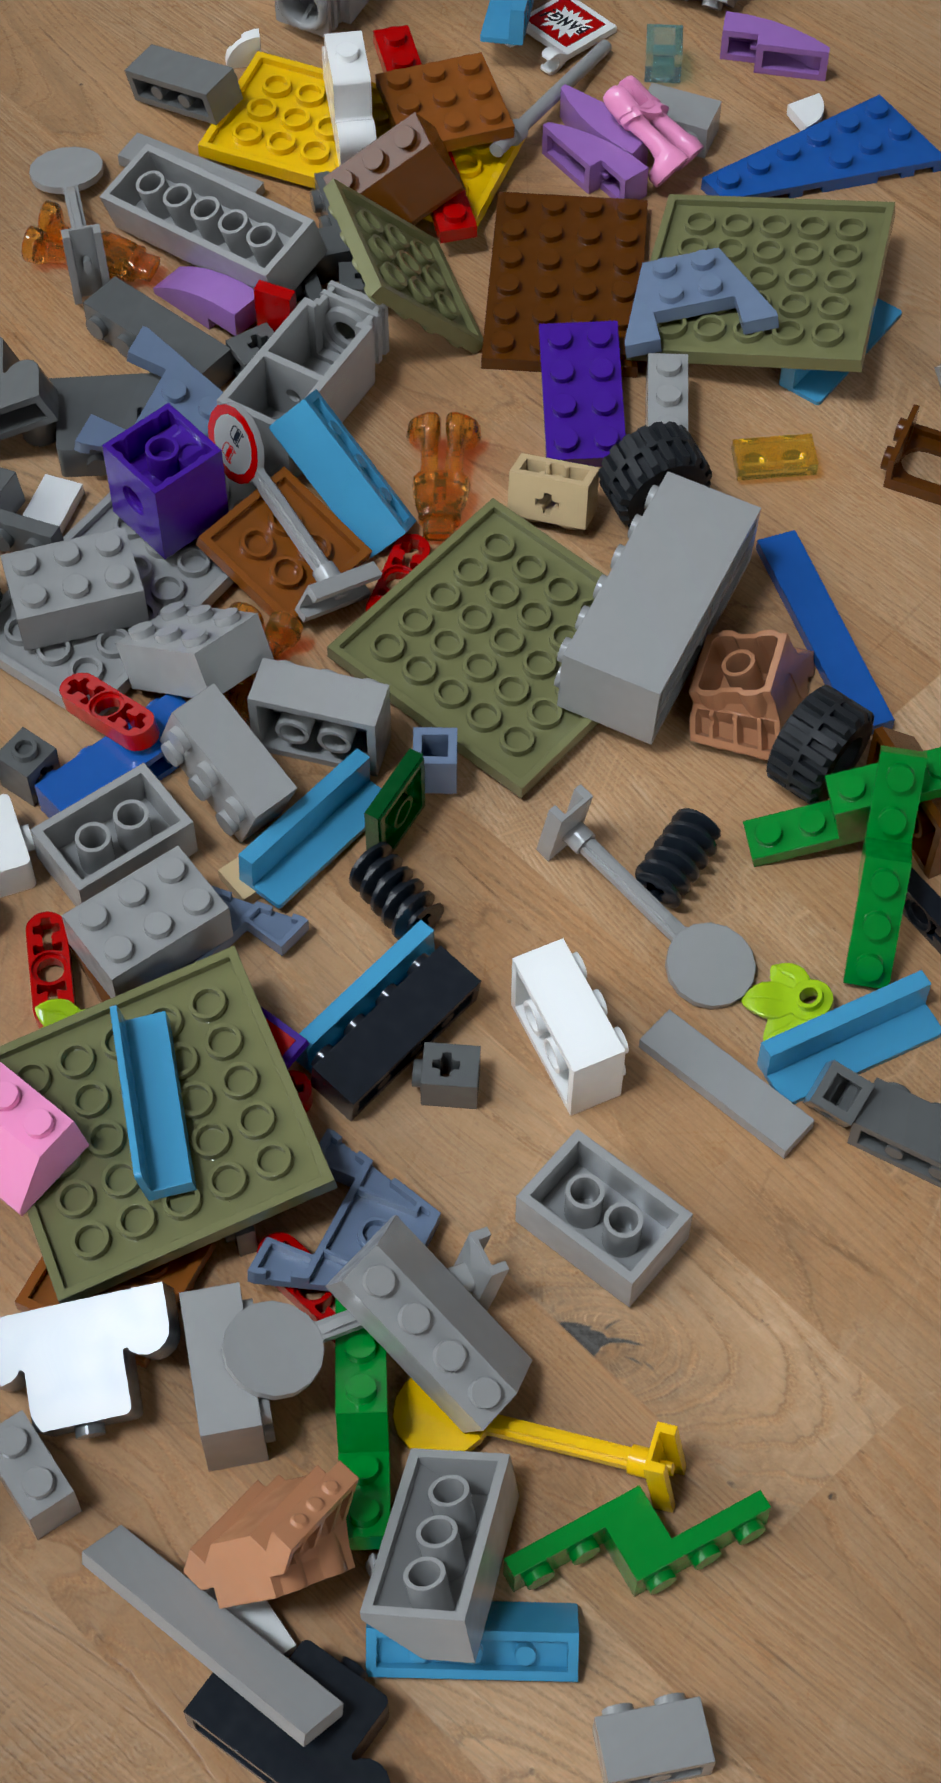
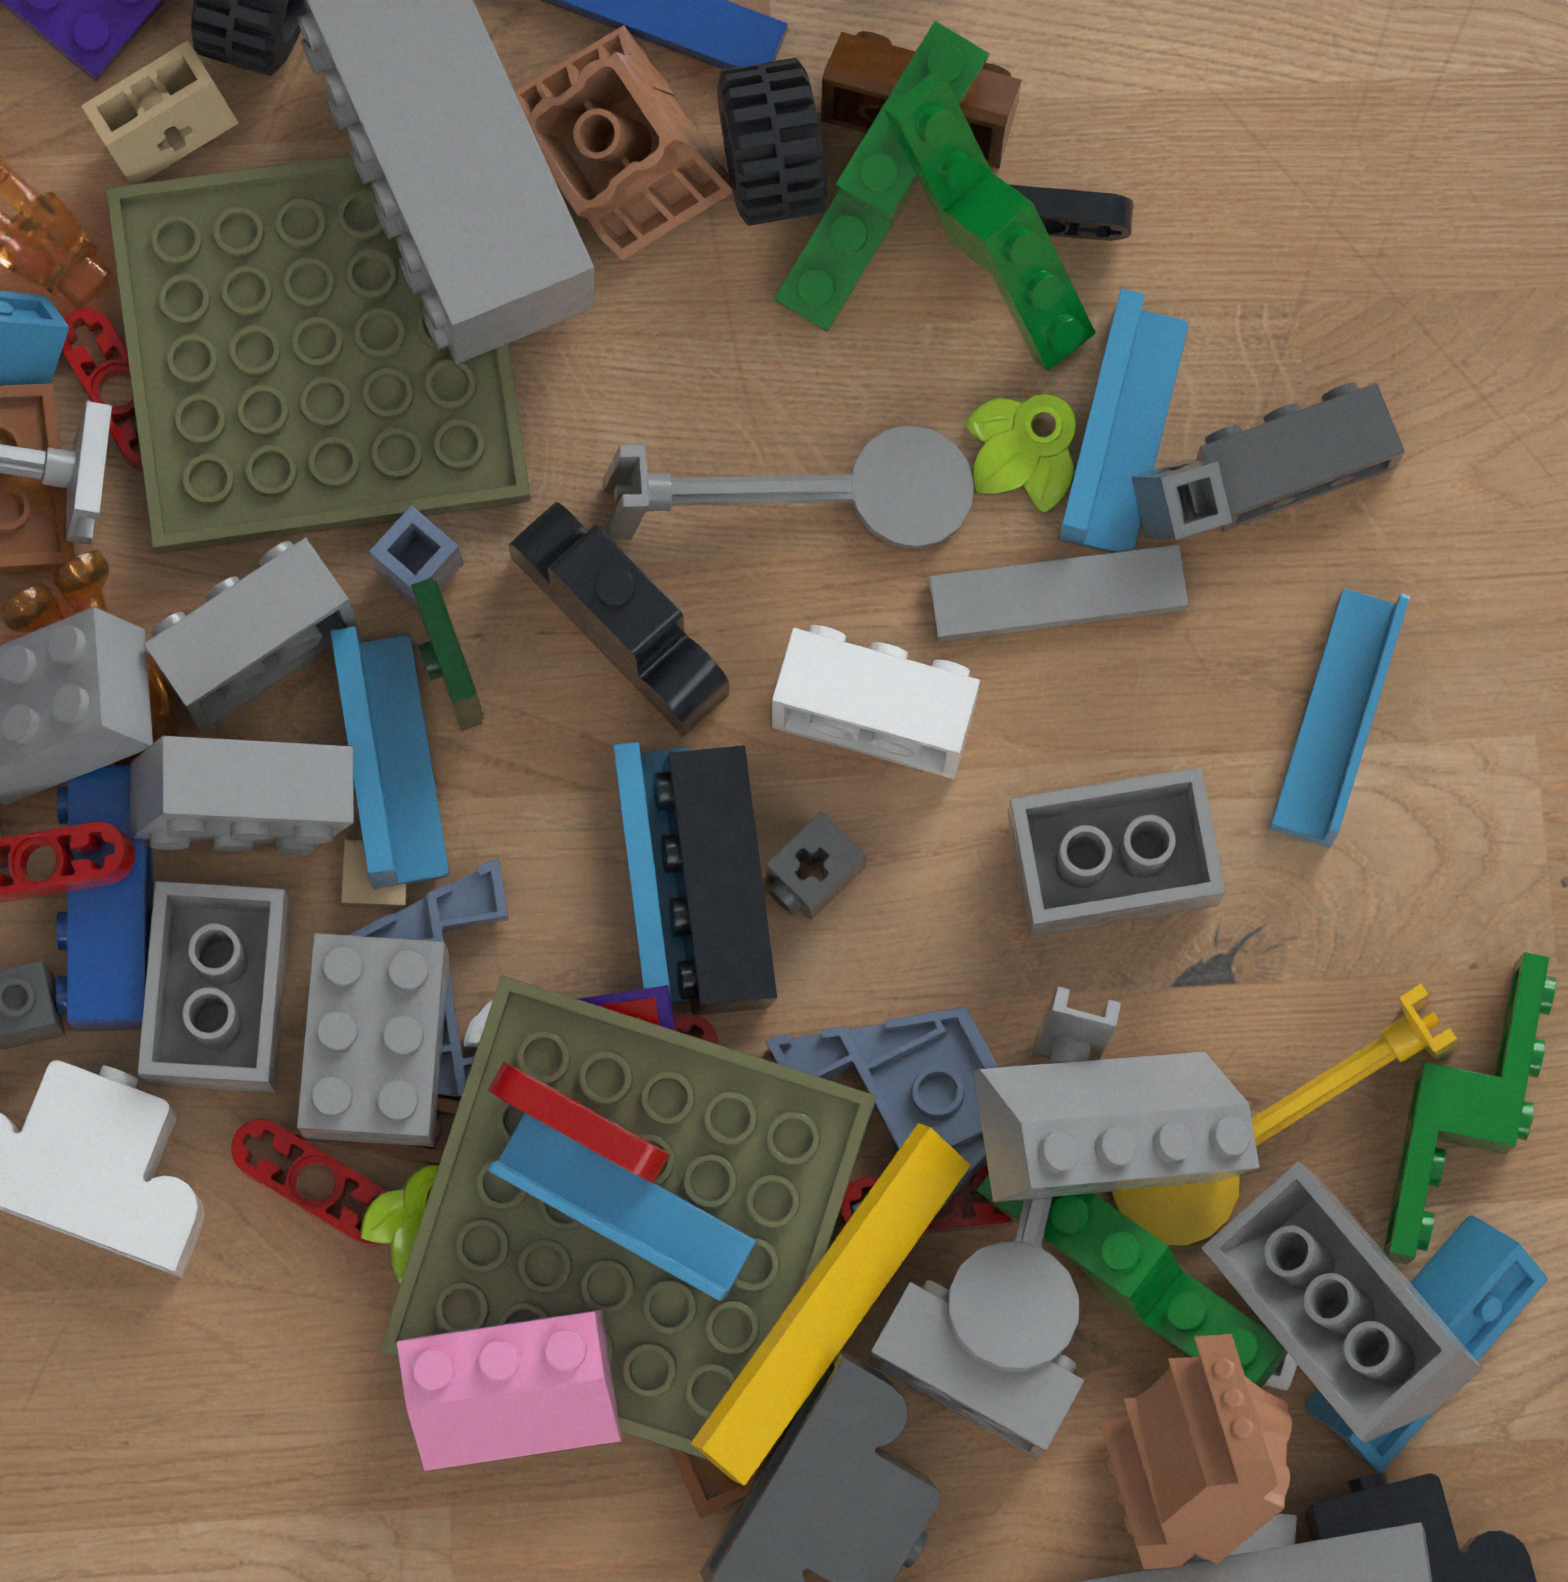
camera: 50 degrees left, 20 degrees up
(181, 1040) = (578, 1122): none -> red beam
(192, 1256) = (830, 1304): none -> yellow tile
(393, 891) = (543, 741): black piece -> none
(495, 879) = (621, 614): none -> black brick
(678, 856) = (759, 410): black piece -> none
(802, 1284) = (1338, 717): none -> dark azure panel

